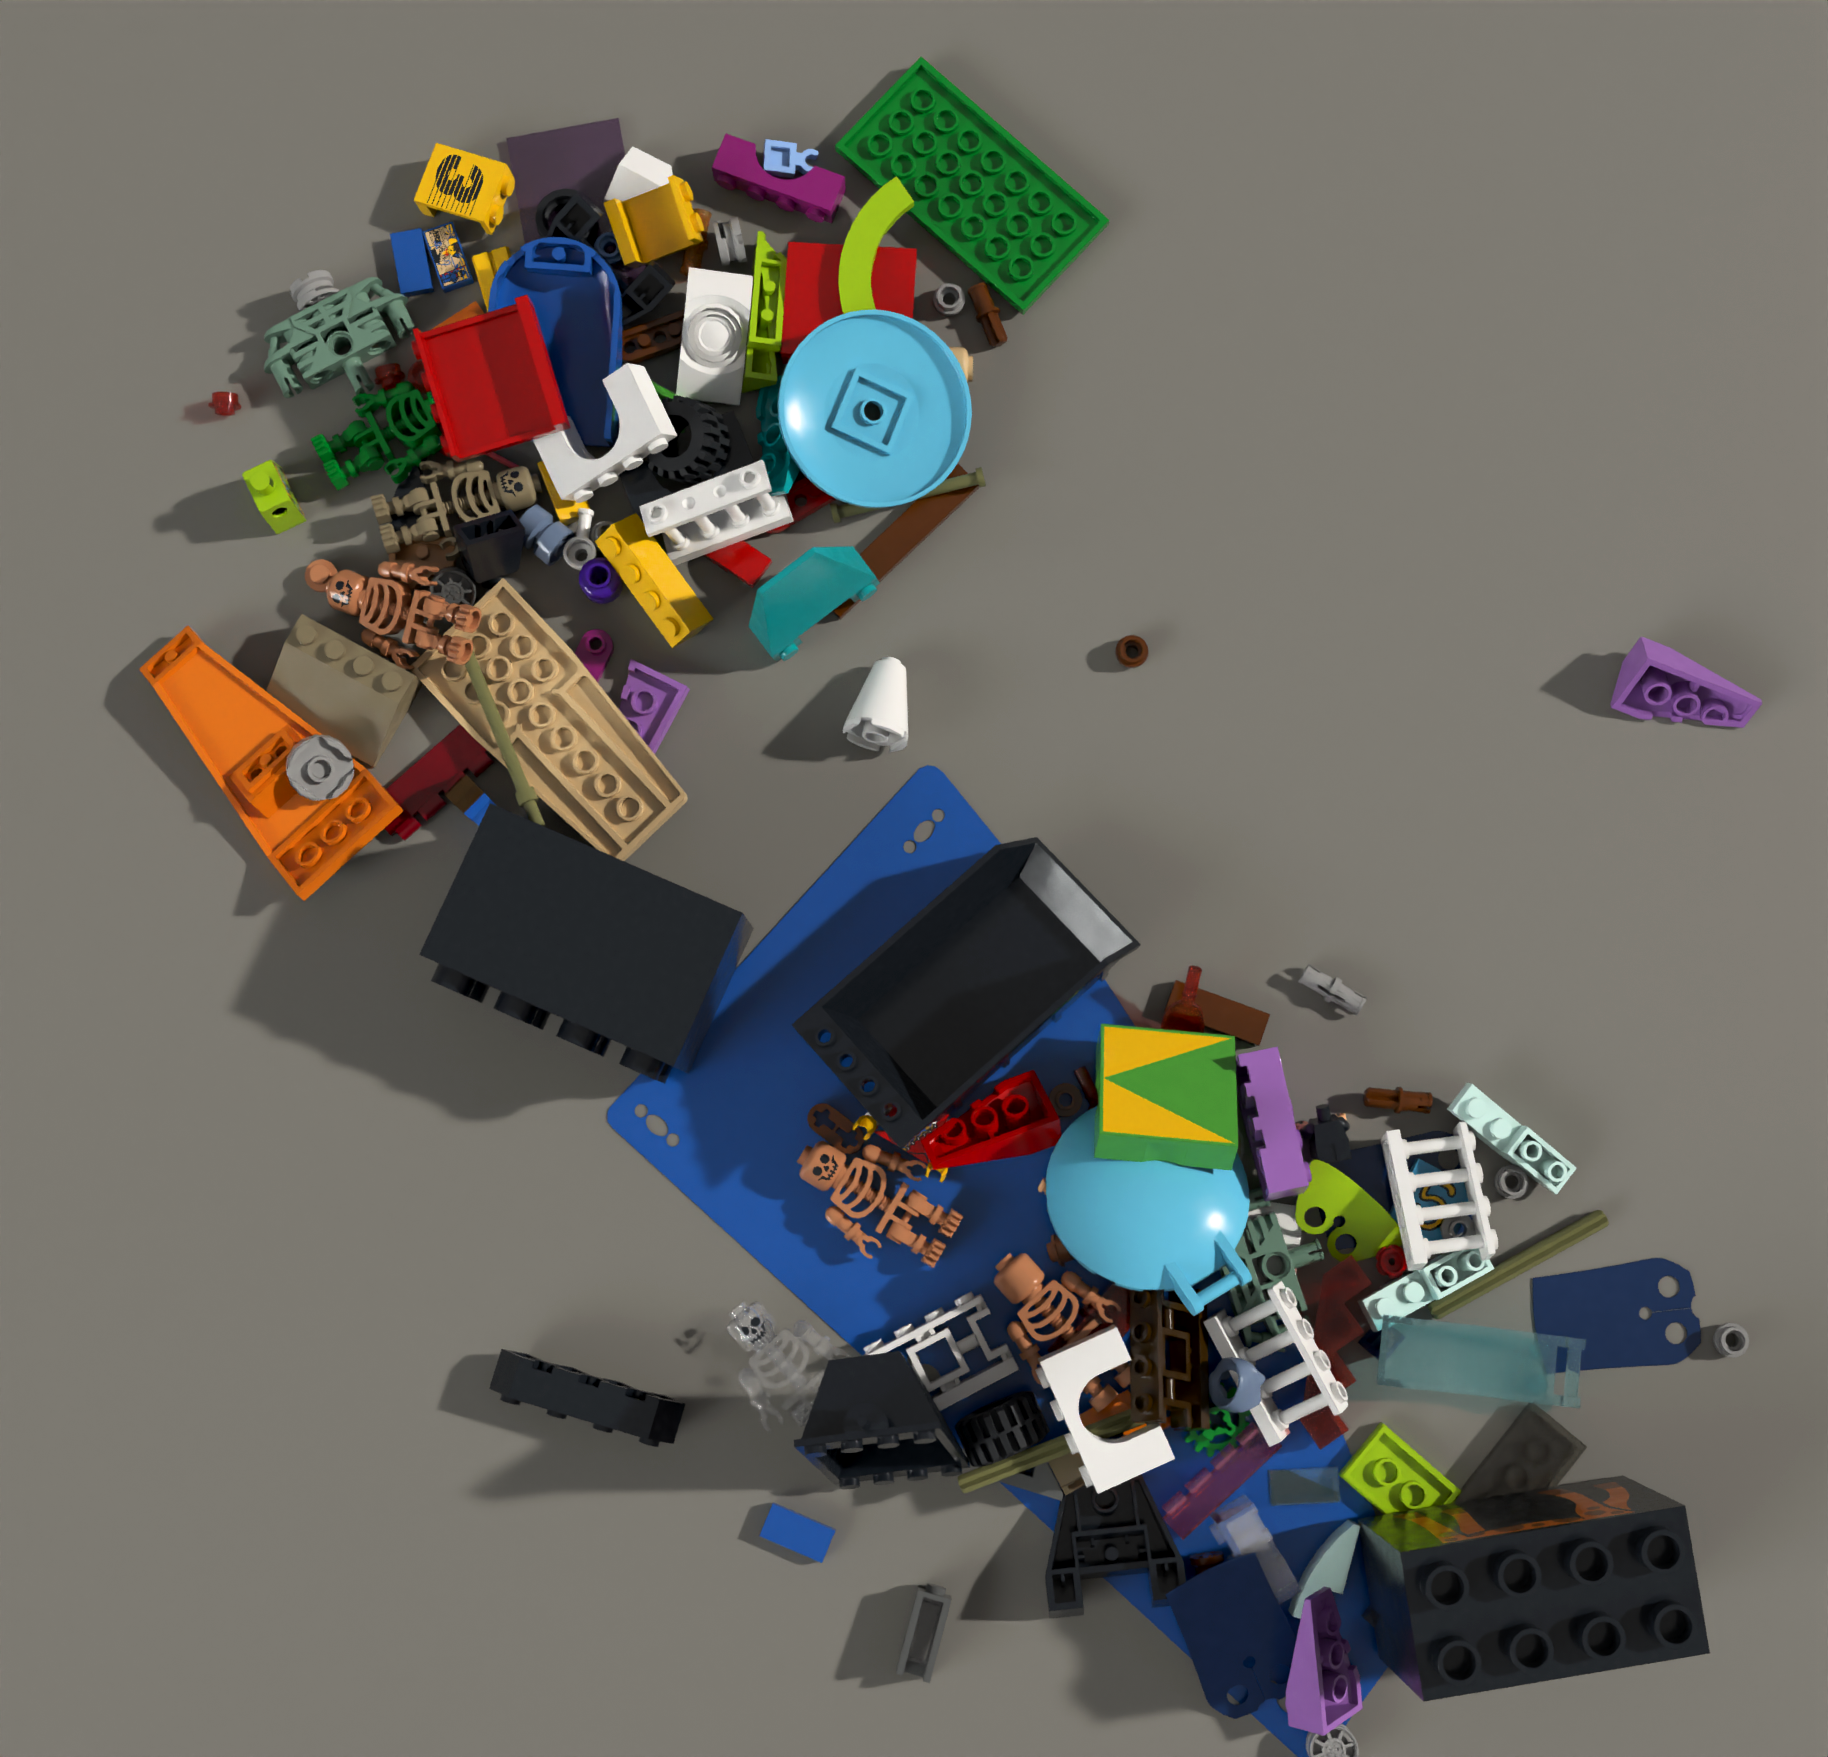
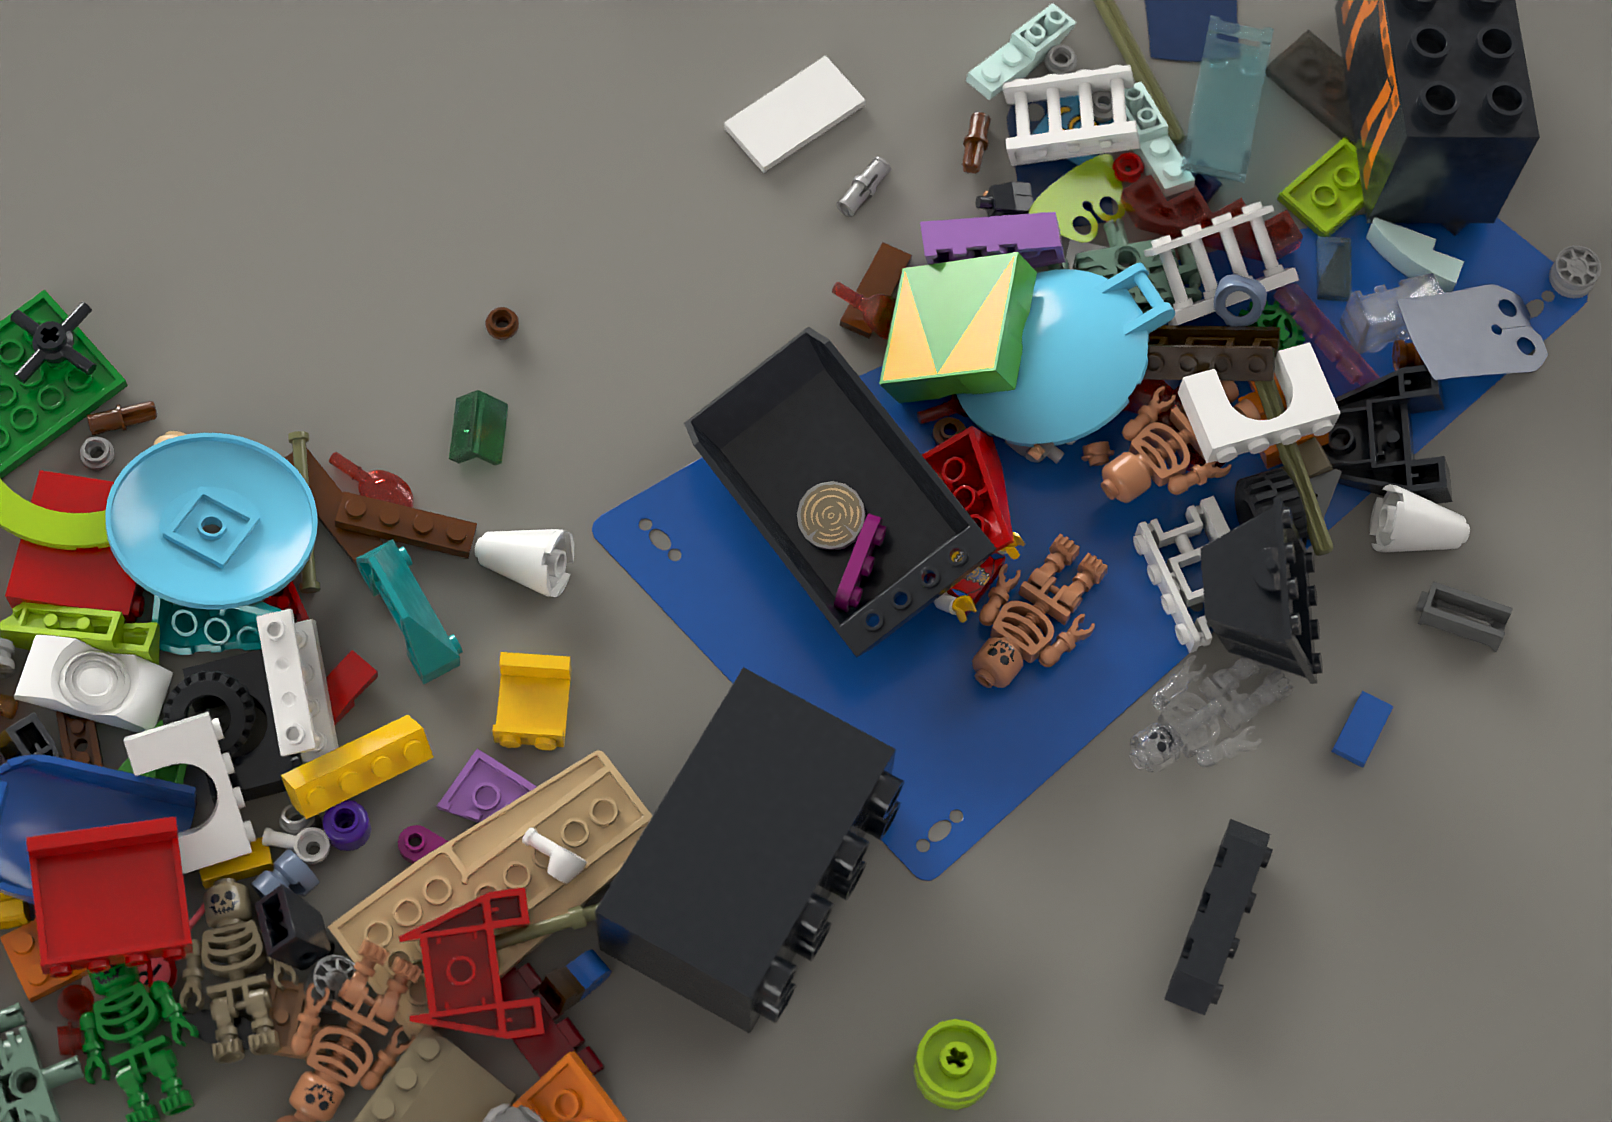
camera: 90 degrees left, 15 degrees down
(404, 1151) = (960, 1043): none -> lime wheel
(462, 700) = (464, 969): none -> red wedge
(574, 777) = (562, 863): none -> white bar
(740, 732) = (532, 700): none -> yellow panel
(831, 1135) = (953, 645): reddish brown beam -> none
(899, 1021) = (860, 563): none -> magenta plate
(906, 590) = (405, 525): none -> reddish brown plate
(944, 561) = (375, 483): none -> clear red piece
(949, 989) = (831, 515): none -> dark tan tile
(1015, 645) = (478, 428): none -> clear green panel
(1015, 1579) = (1414, 523): none -> white cone
(1040, 228) = (53, 342): none -> black bar
(1321, 1681) = (1515, 266): medium lavender wedge -> none
(1408, 911) = (794, 114): none -> white tile

